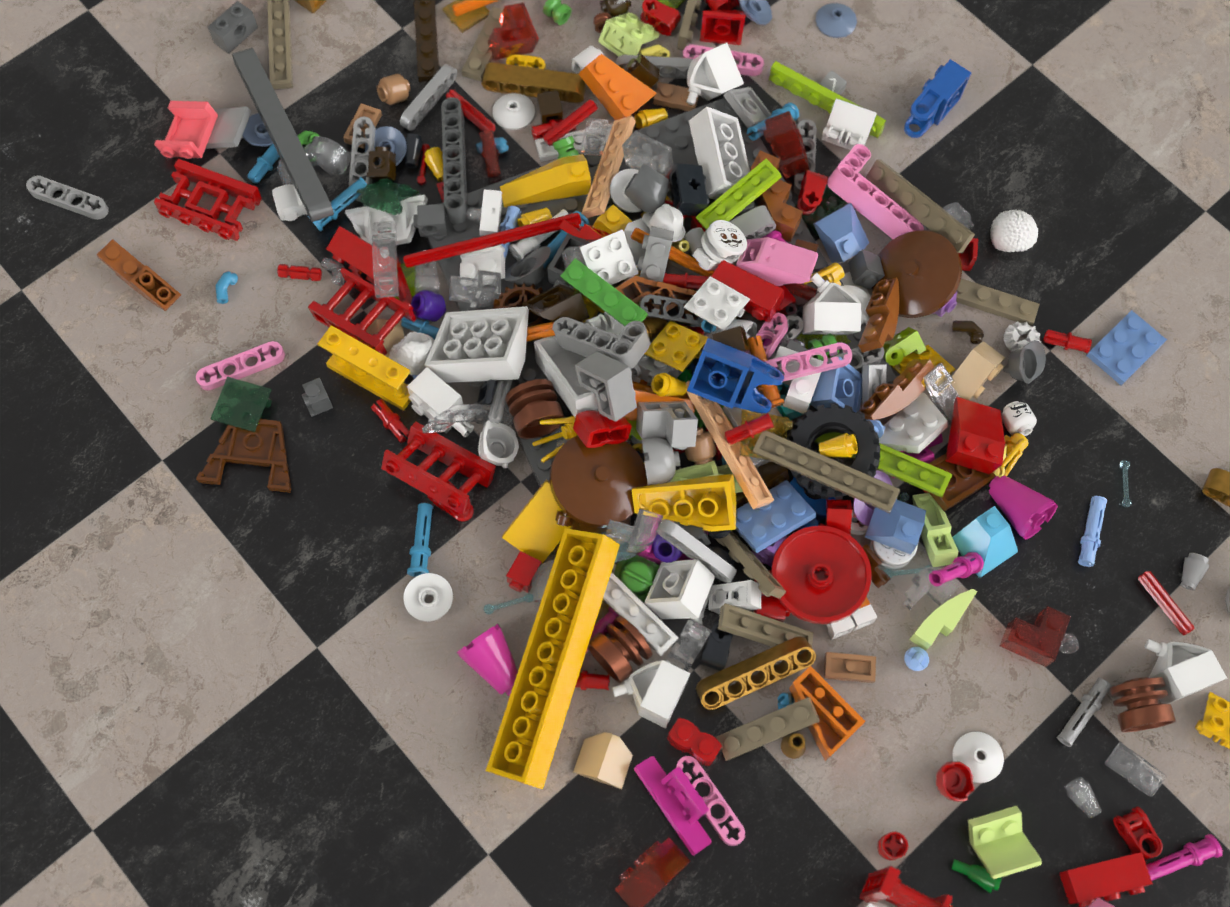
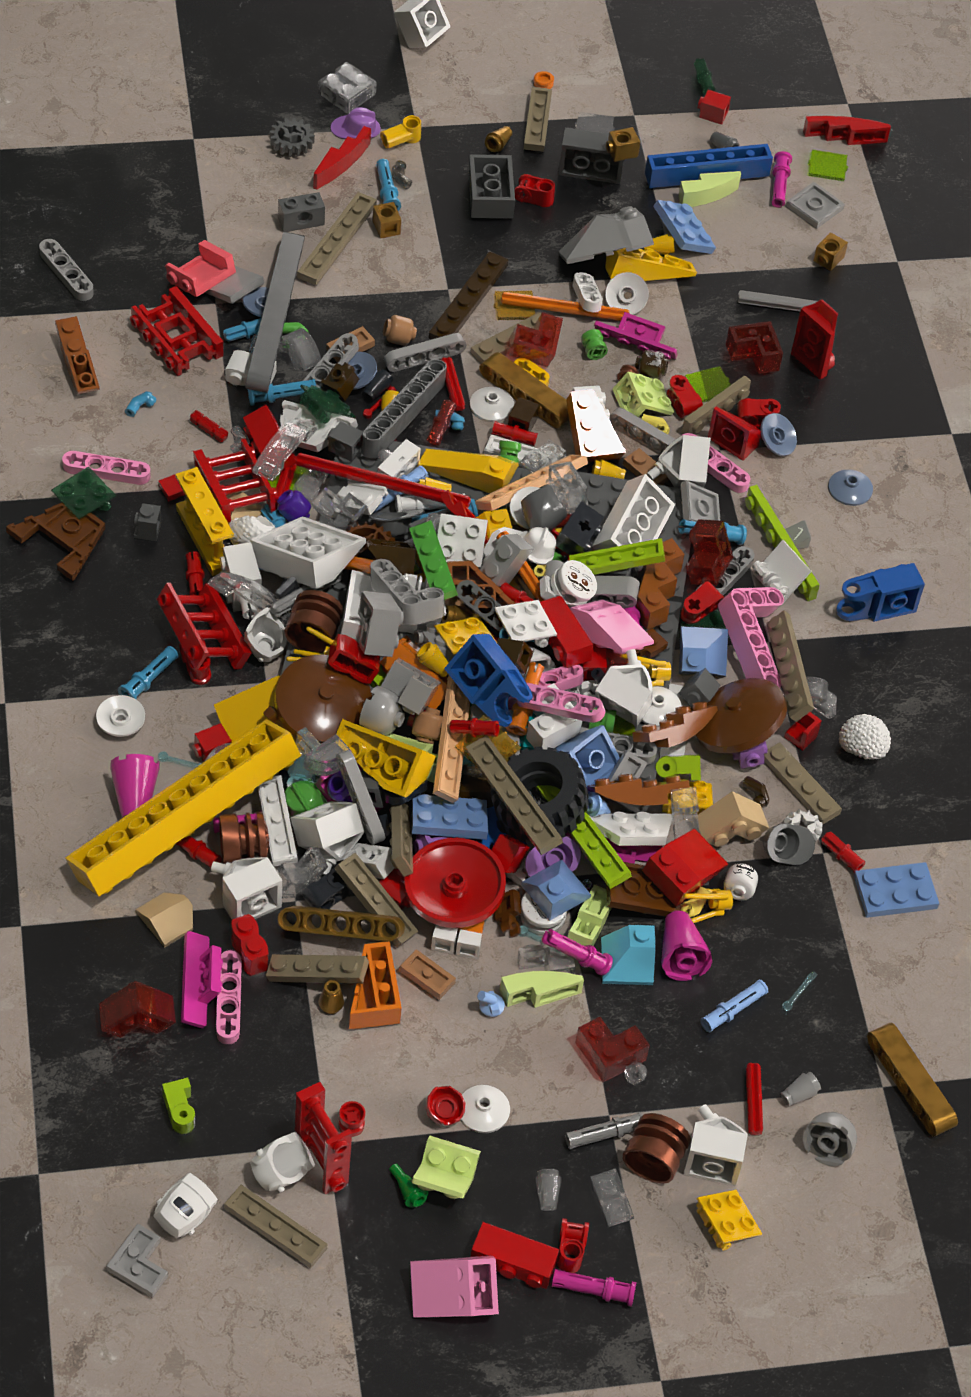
camera: 30 degrees right, 15 degrees down
(309, 348) = (170, 488): none -> red tile
(570, 122) = (531, 434): red axle -> none
(643, 70) = (628, 429): dark brown brick -> none
(839, 446) = (540, 782): yellow cone -> none

